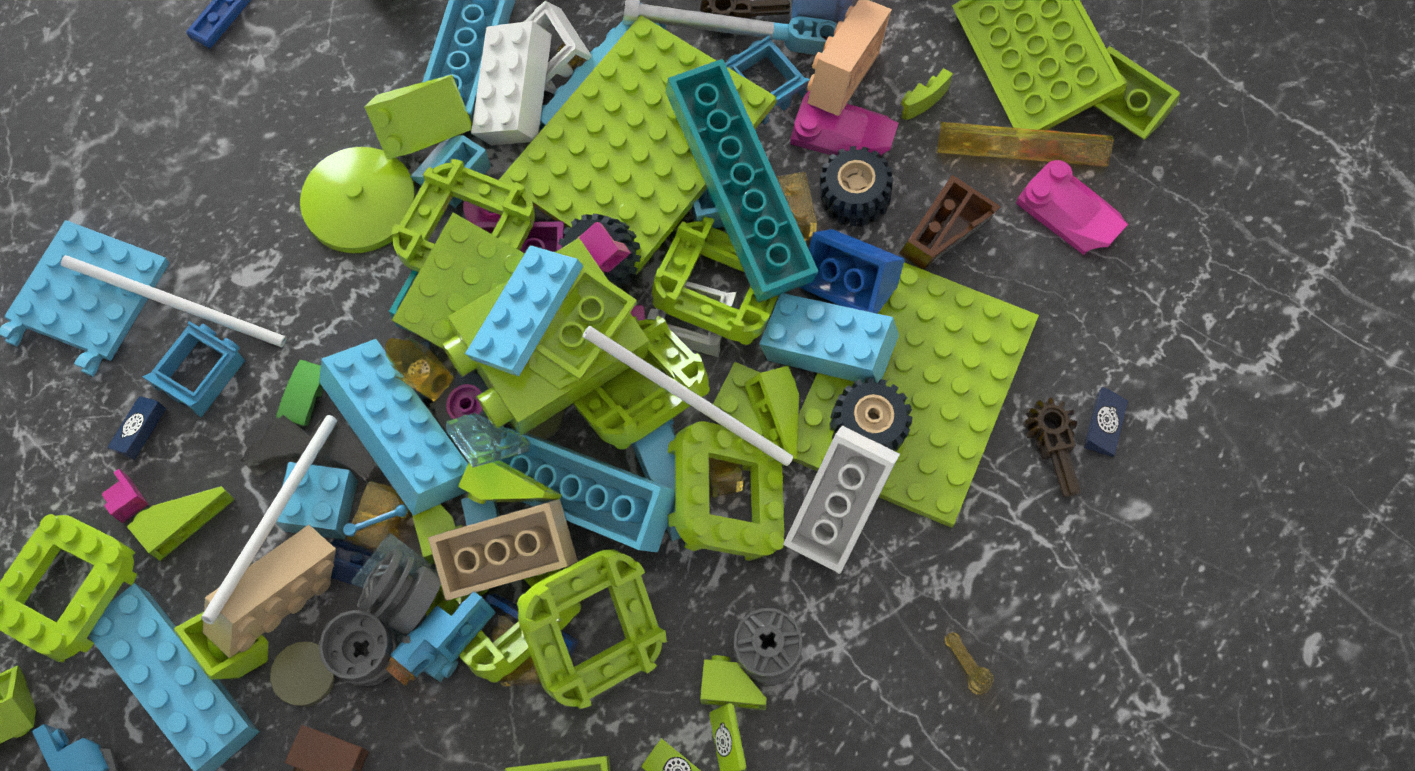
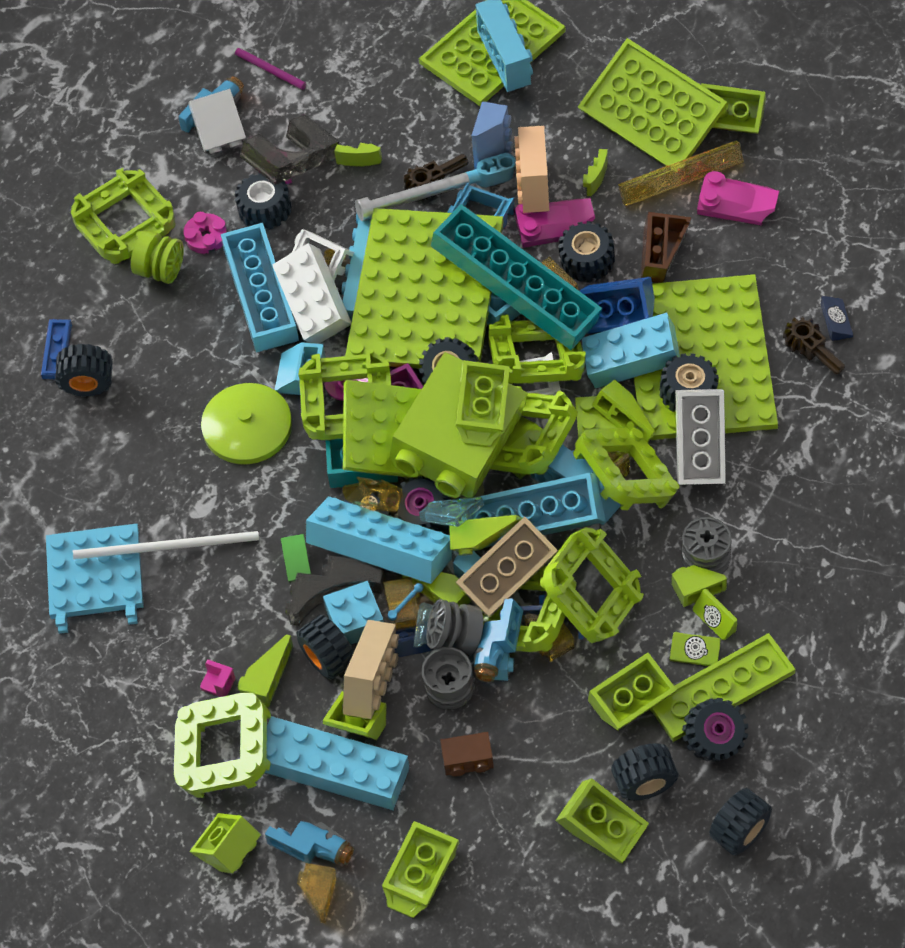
camera: 25 degrees left, 10 degrees down
(137, 427) = (193, 636): dark blue slope -> none
(213, 382) = (206, 556): dark azure window -> none
(219, 48) = (83, 370): none -> black wheel
(237, 520) = (325, 646): none -> black wheel
(268, 521) = (346, 620): white piece -> none
(300, 675) = (415, 719): olive tile -> none
(418, 116) = (262, 344): lime slope -> none
(524, 310) = (442, 406): medium azure plate -> none
(603, 248) = (458, 350): dark pink panel -> none
(686, 395) = (571, 415): white piece -> none
(980, 678) = (848, 502): clear yellow piece -> none

